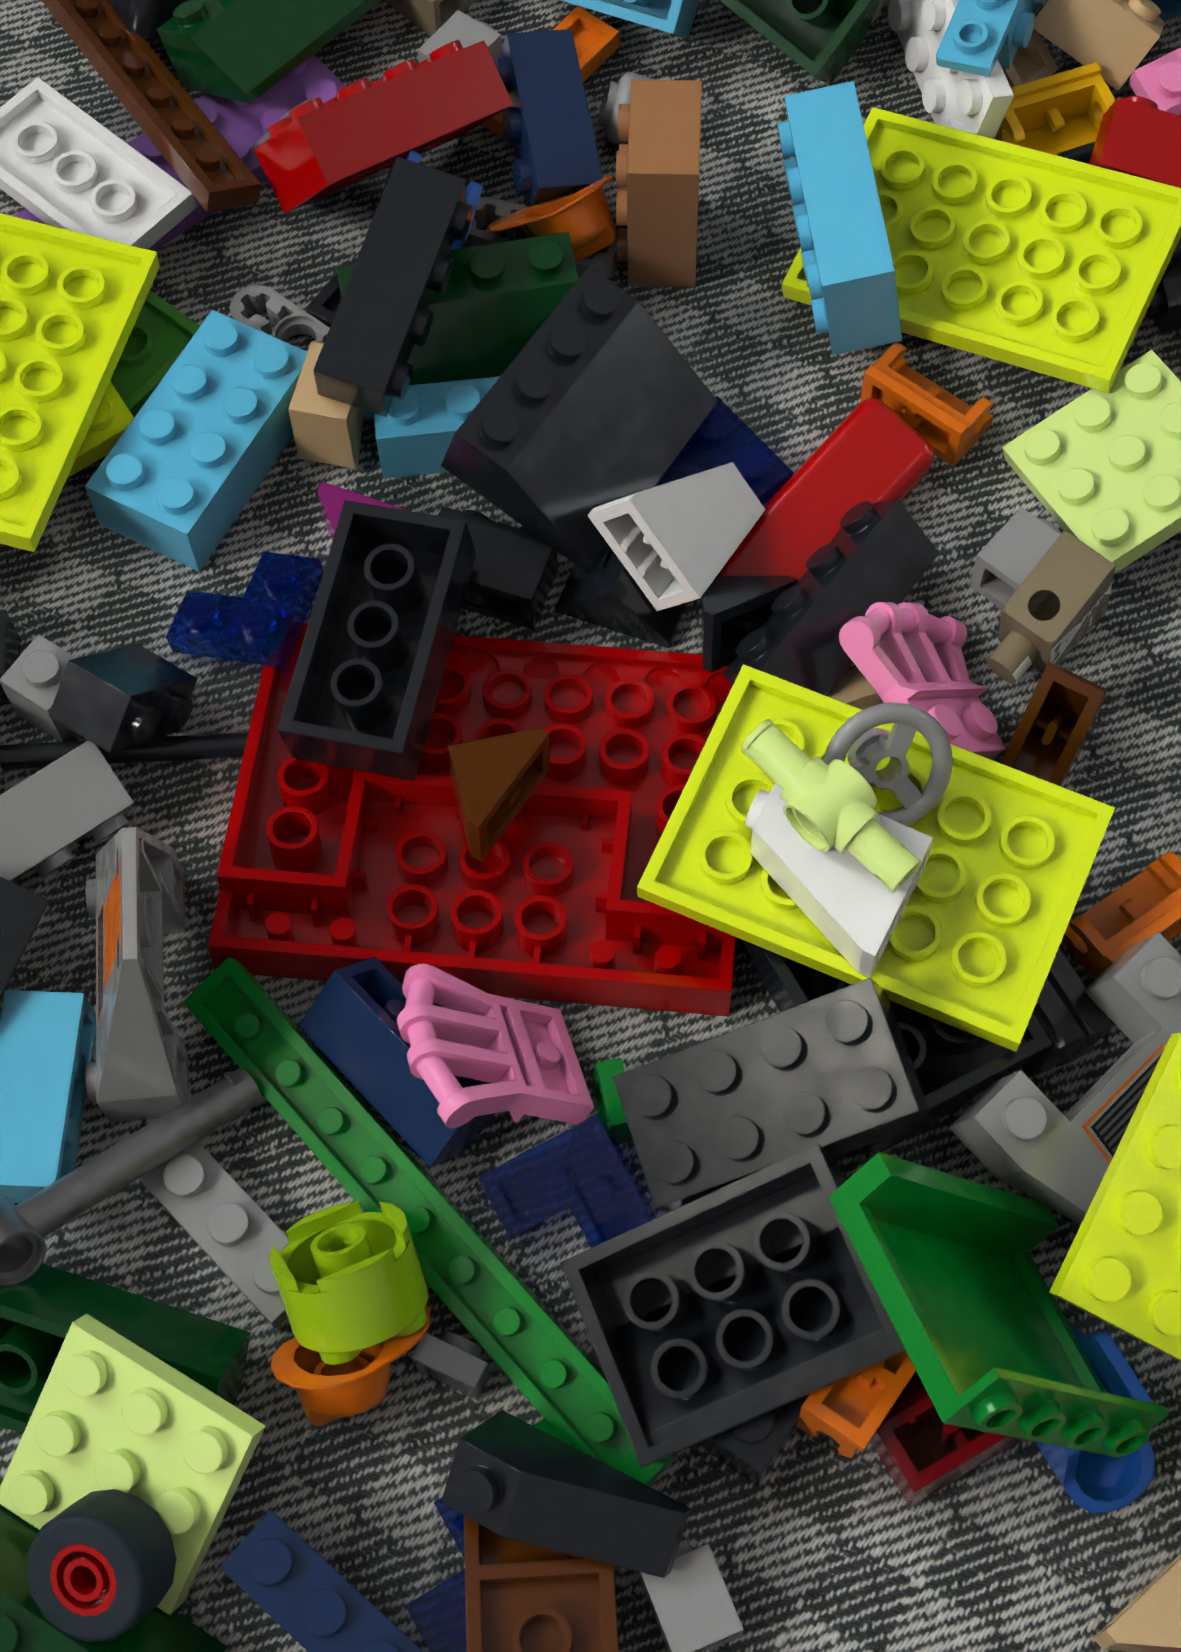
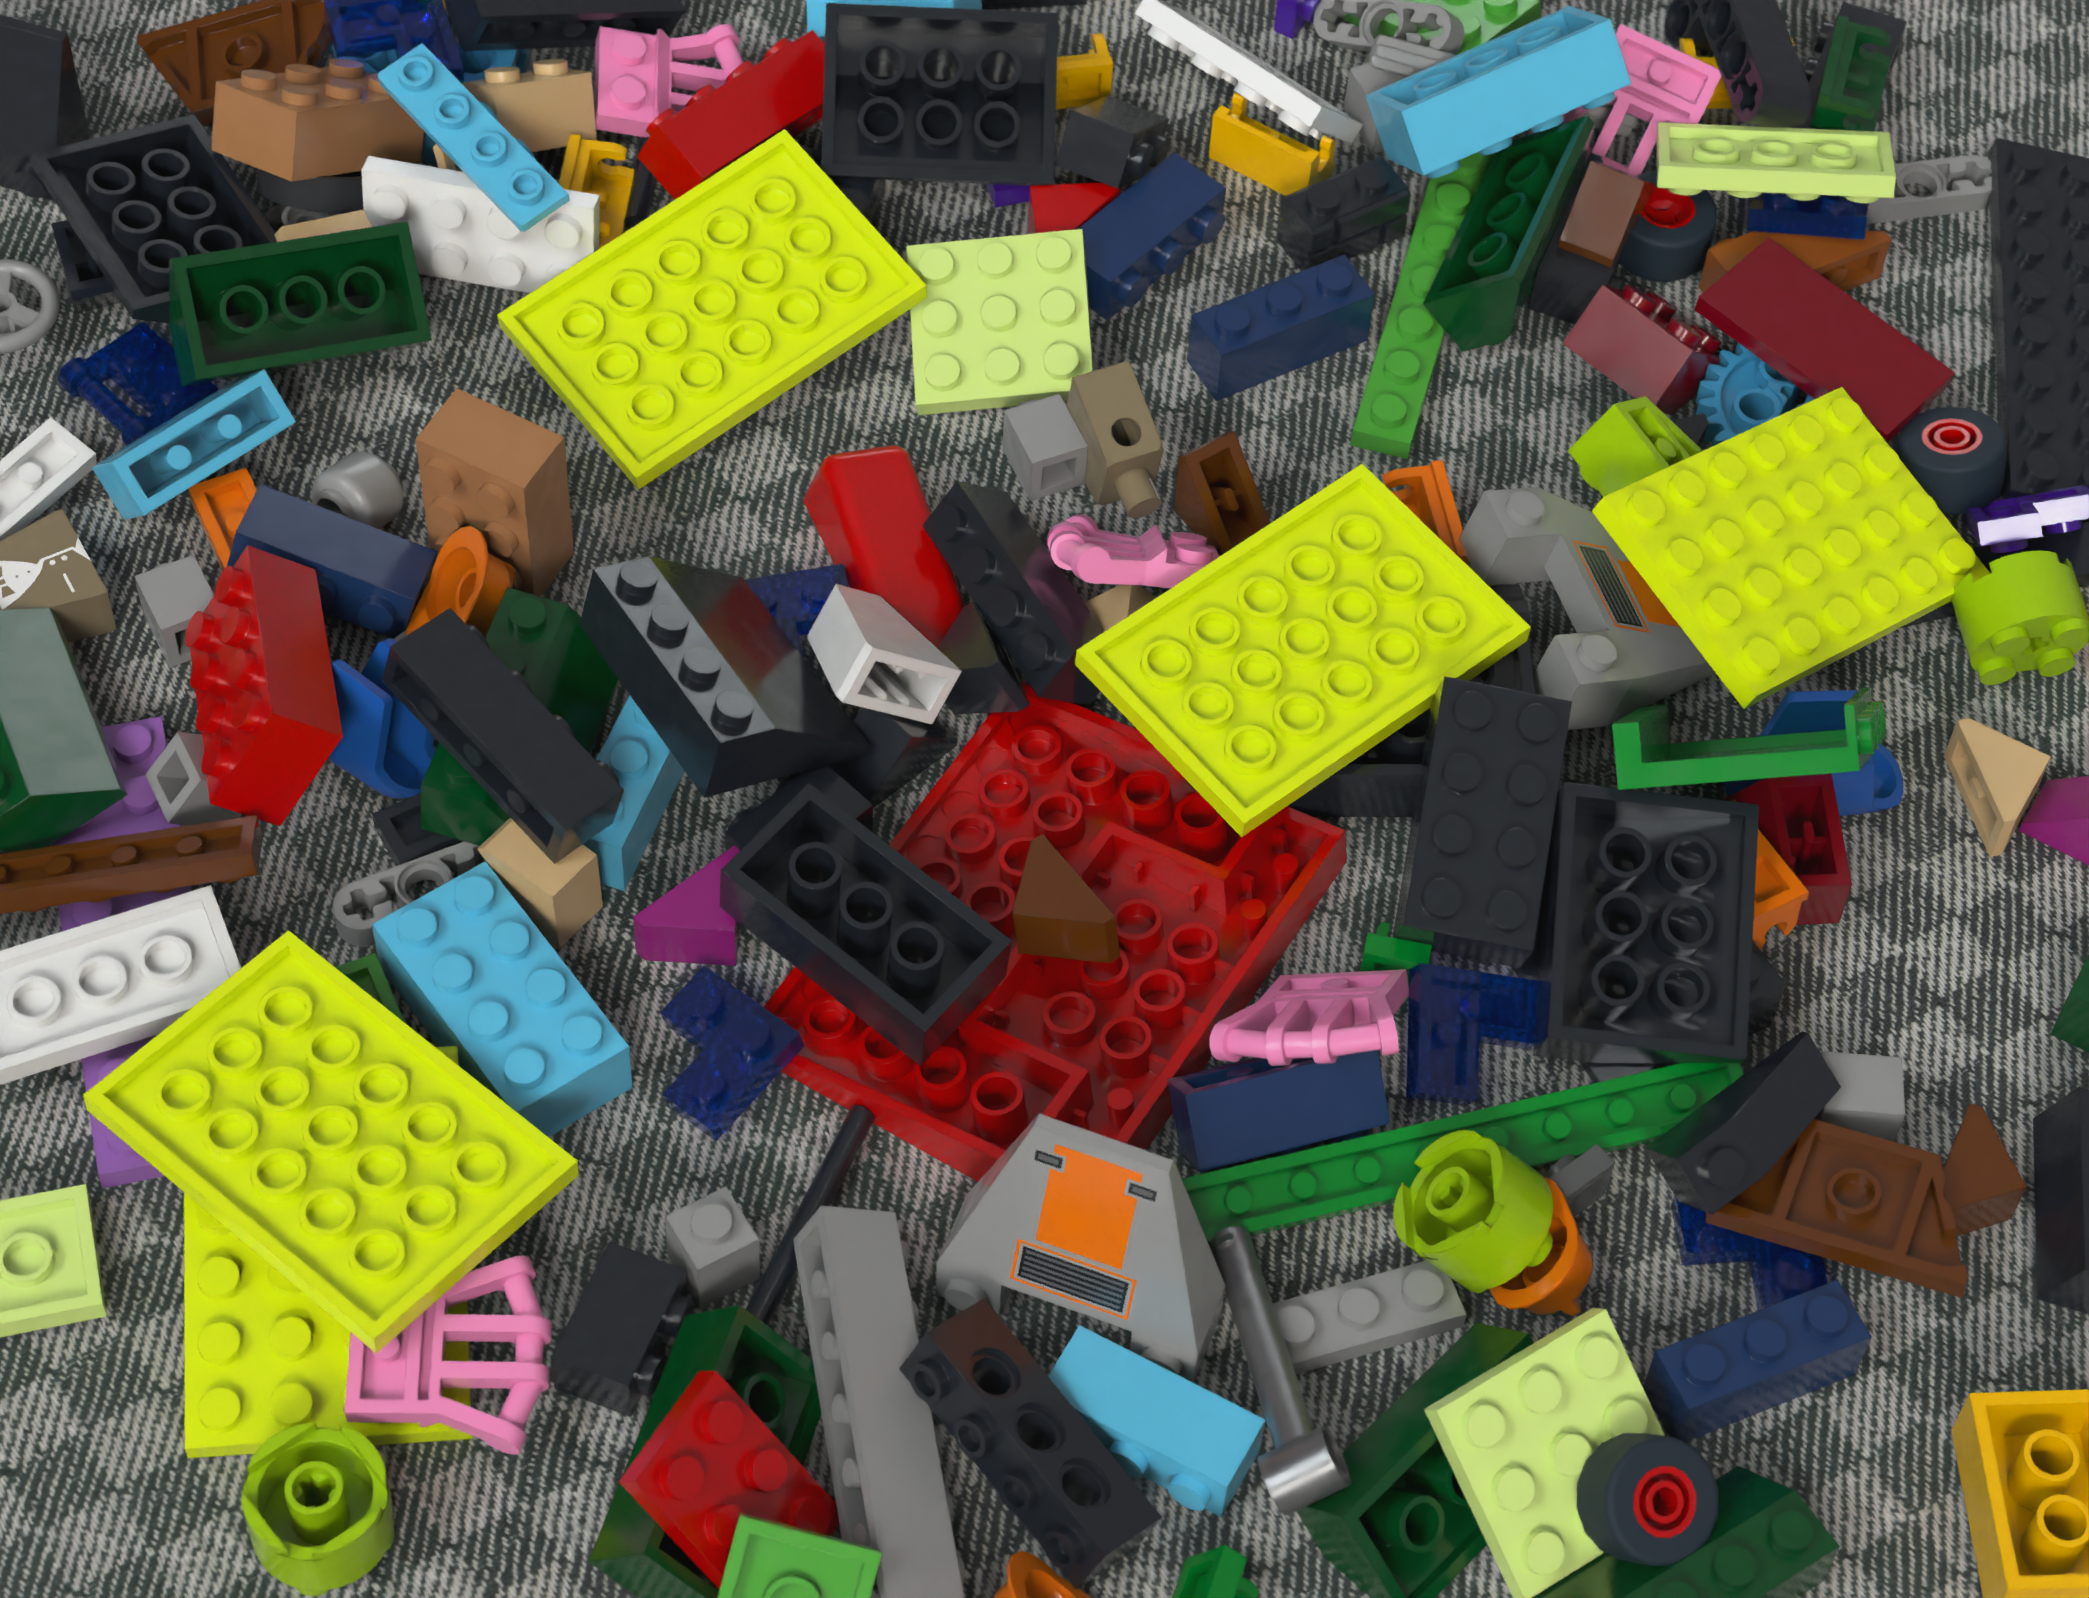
camera: 70 degrees left, 10 degrees down
(123, 697) = (782, 1171): black brick -> none
(830, 805) = (1291, 618): yellowish green pin -> none
(831, 887) = (1323, 661): white slope -> none
(839, 219) = (638, 379): medium azure brick -> none
(870, 745) = (1244, 581): light grey piece -> none
(928, 408) = (803, 449): orange hinge -> none

